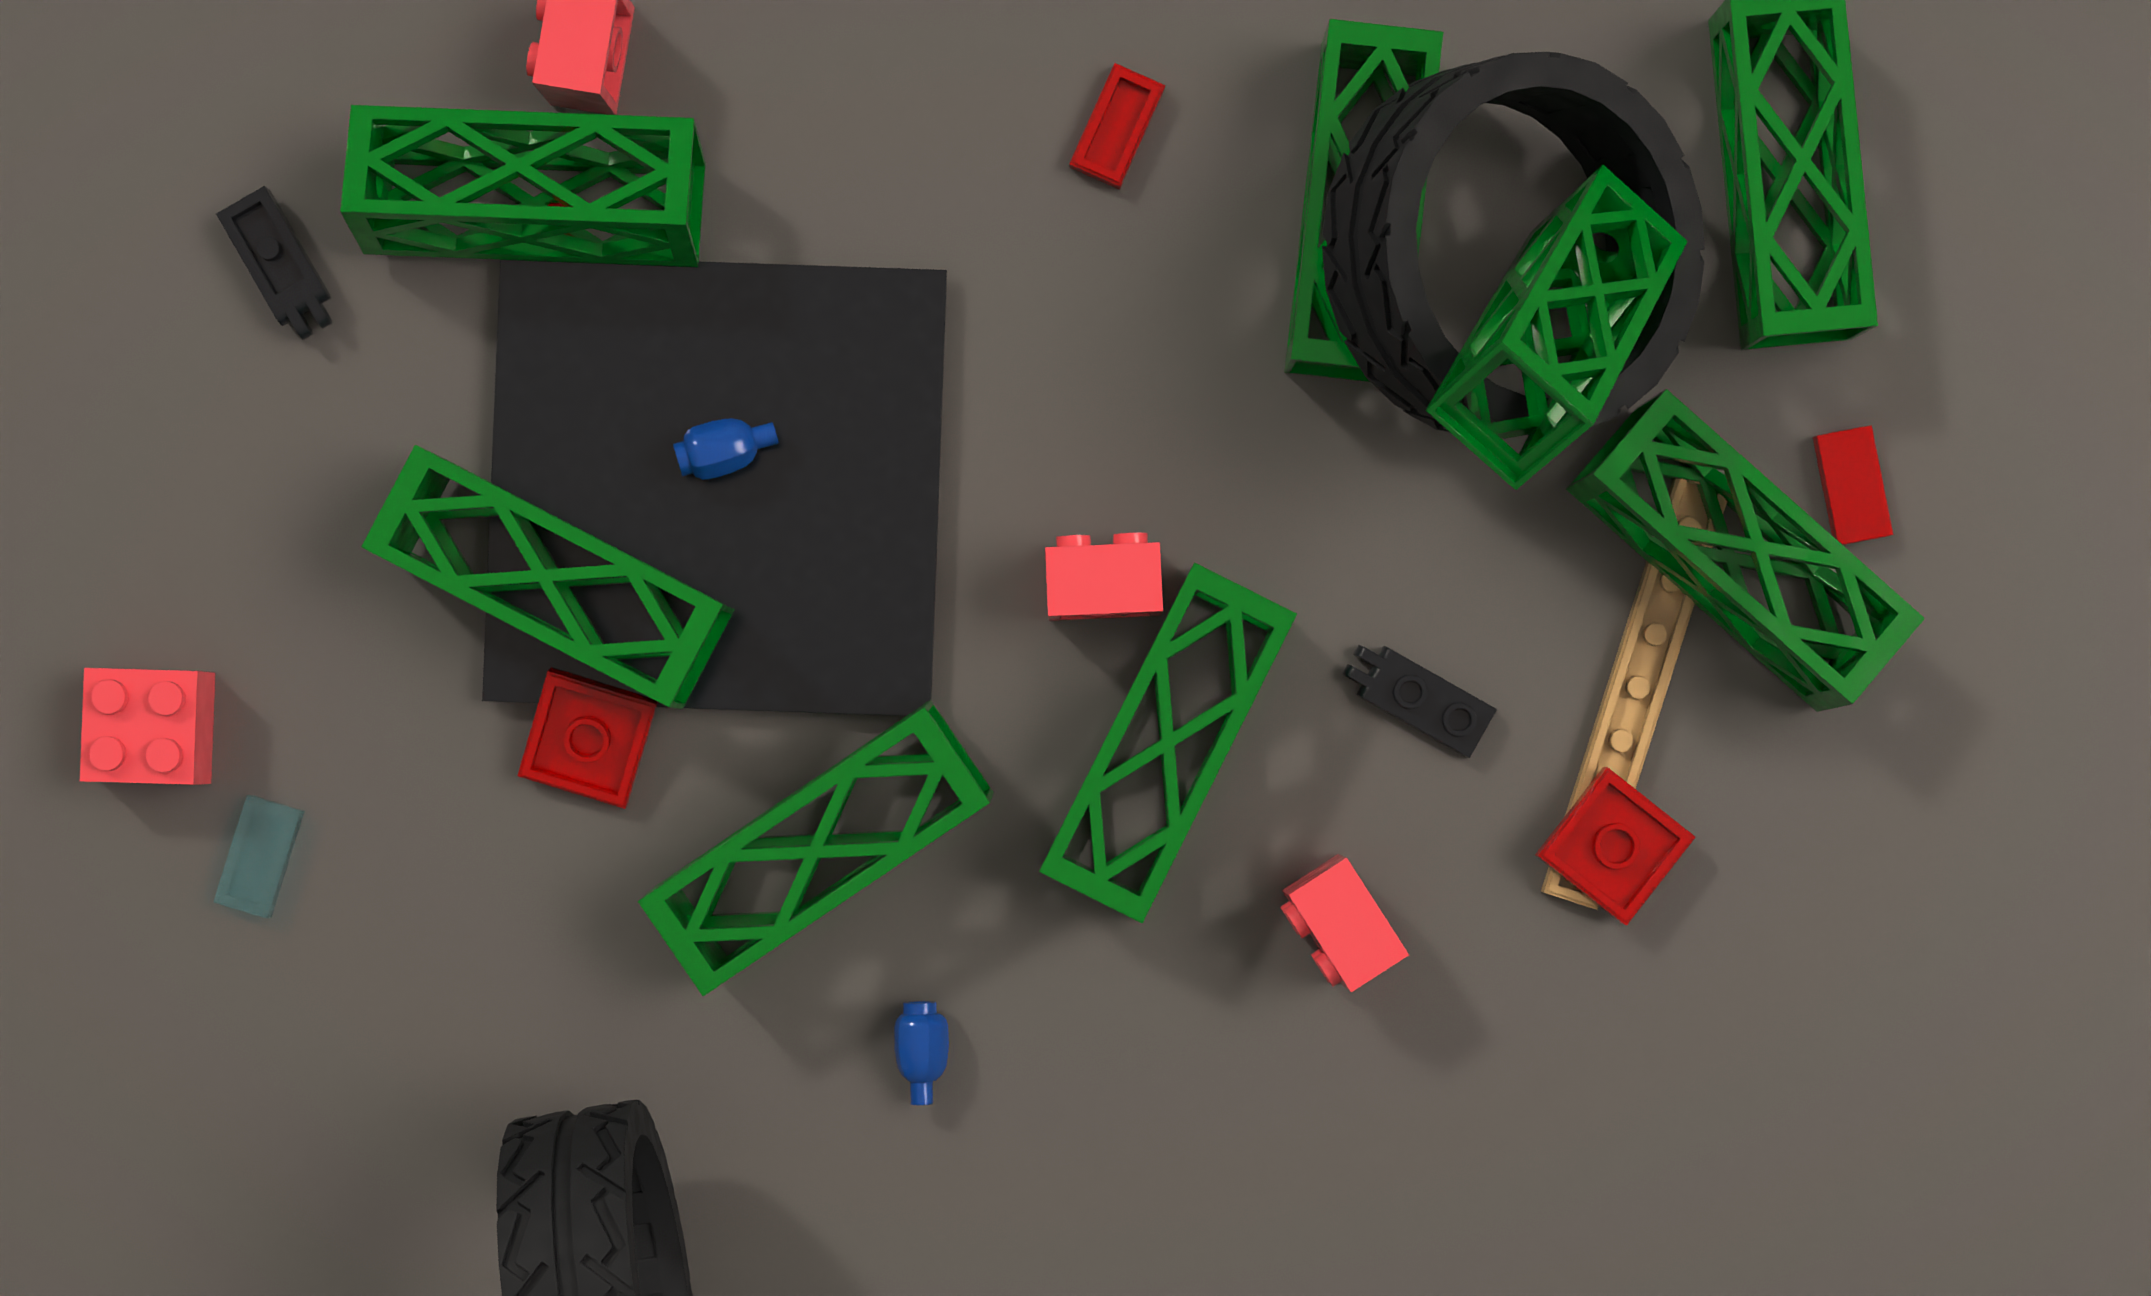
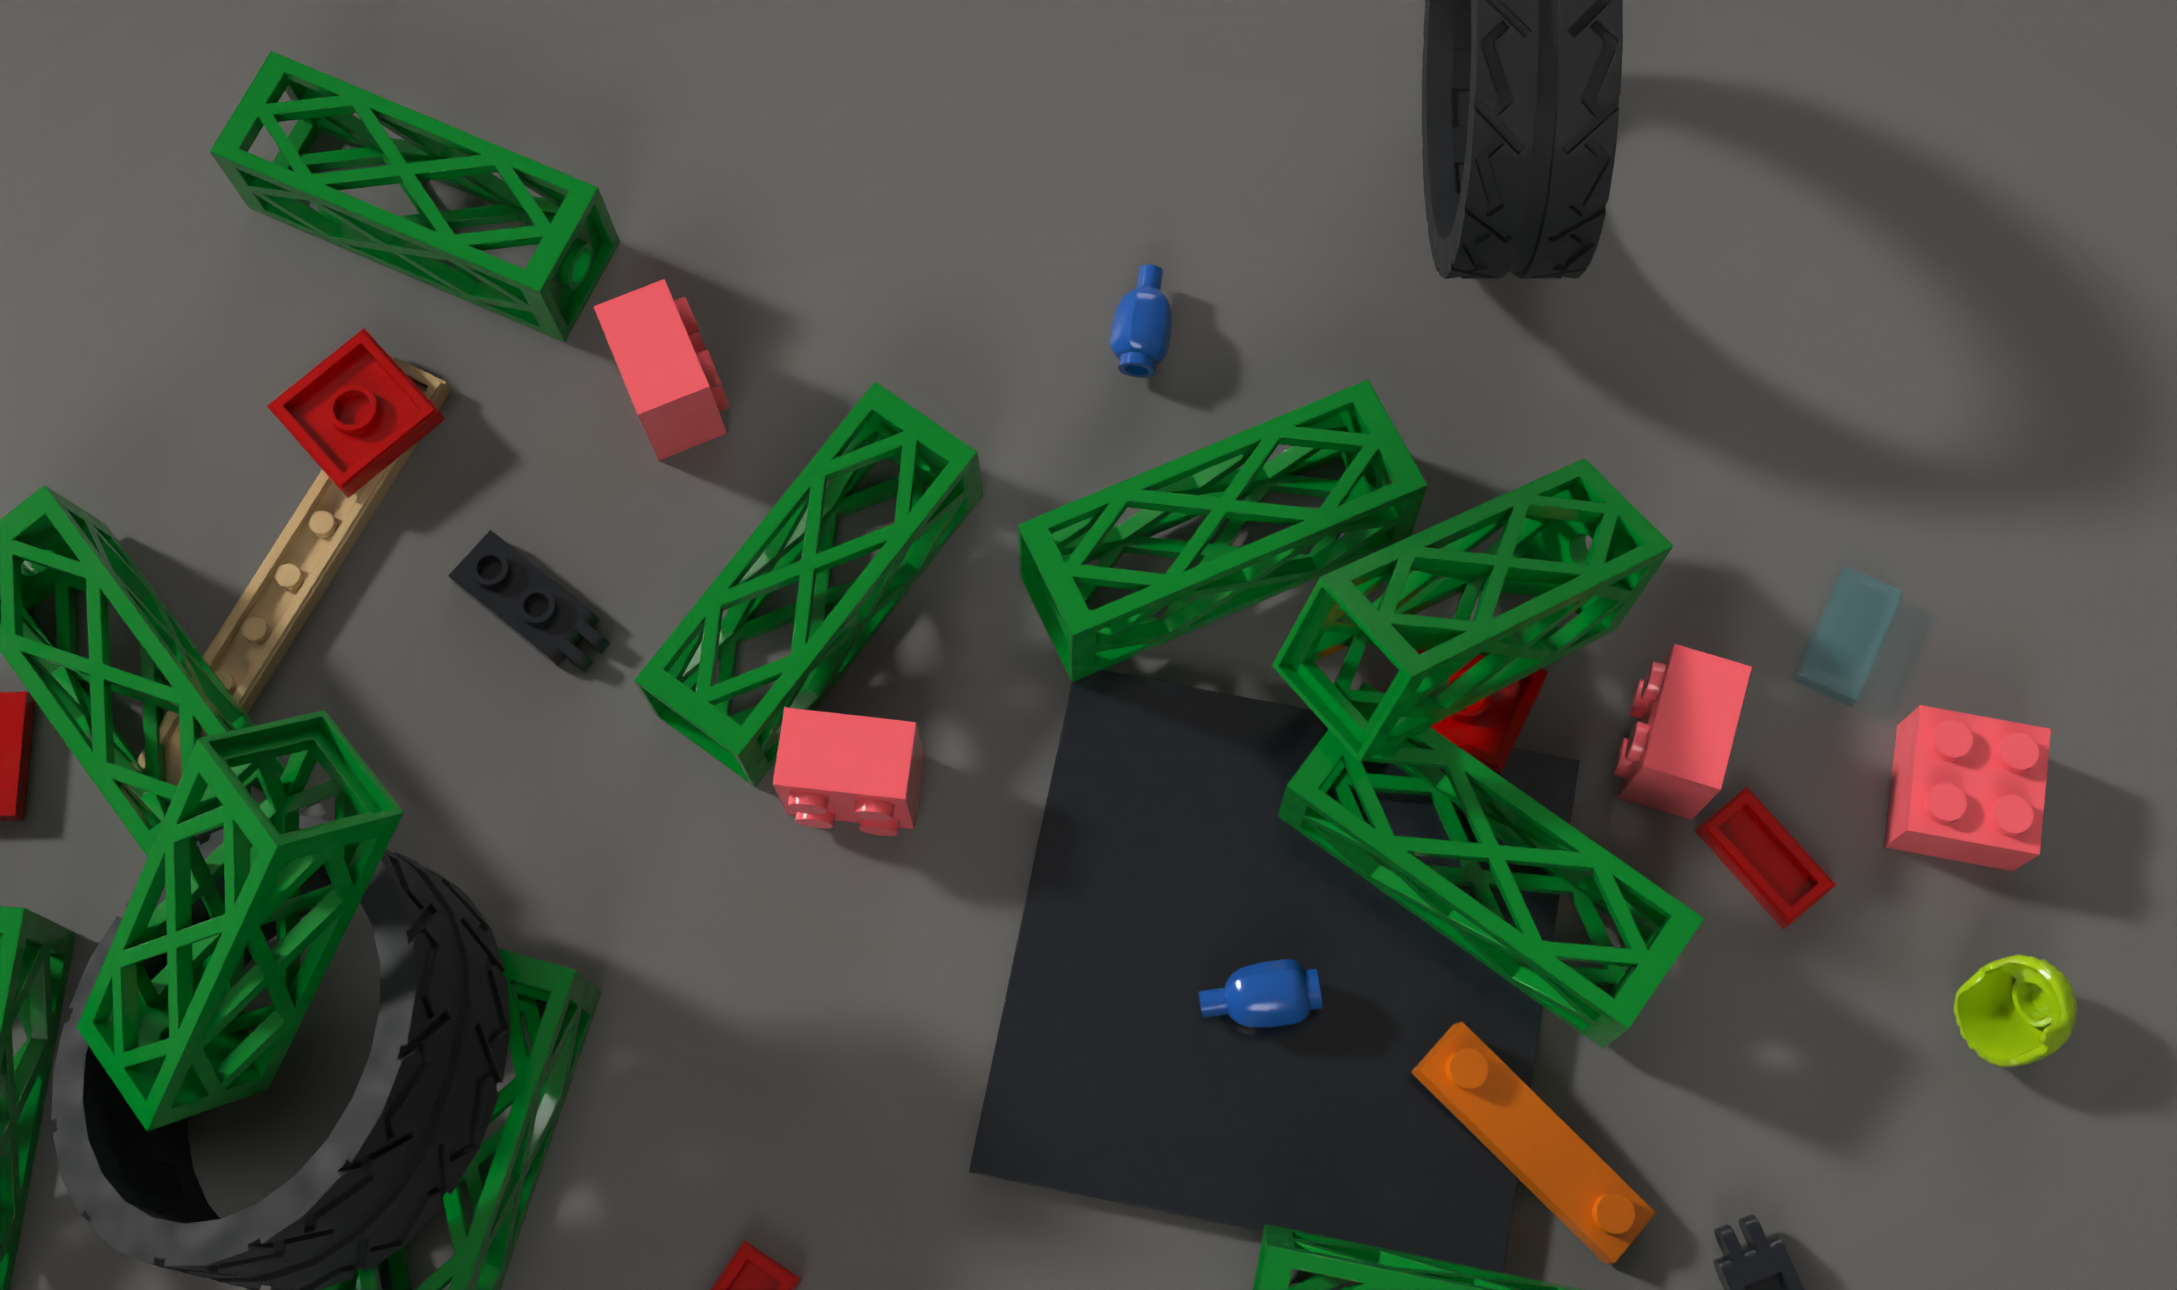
camera: 175 degrees left, 15 degrees down
(96, 537) = (2016, 1010): none -> lime hair
(316, 644) = (1765, 858): none -> red tile
(396, 730) = (1682, 731): none -> coral brick
(487, 366) = (1533, 1143): none -> orange plate
(520, 890) = (1537, 555): none -> green piece
(1756, 1092) = (566, 222): none -> green piece

